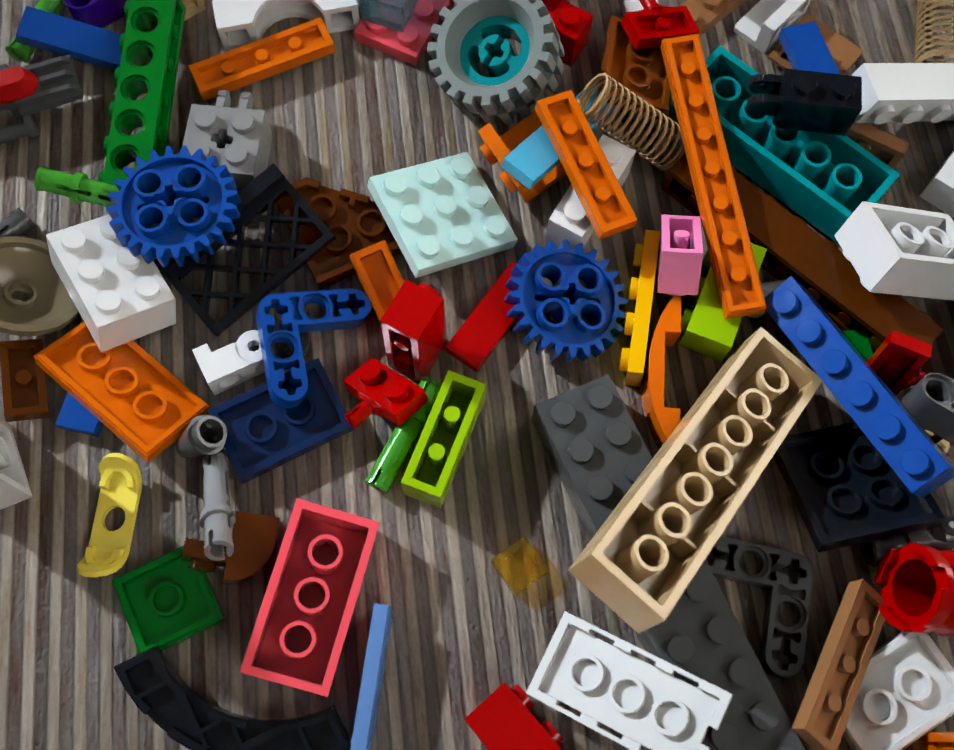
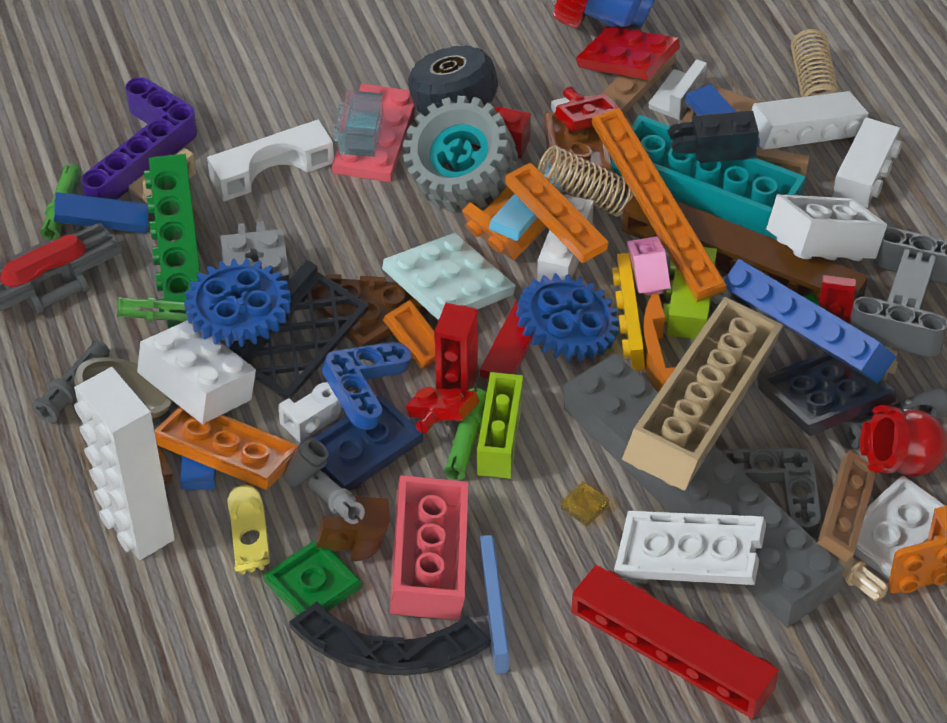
camera: 10 degrees left, 20 degrees down
(262, 58) = (261, 198): orange plate -> none

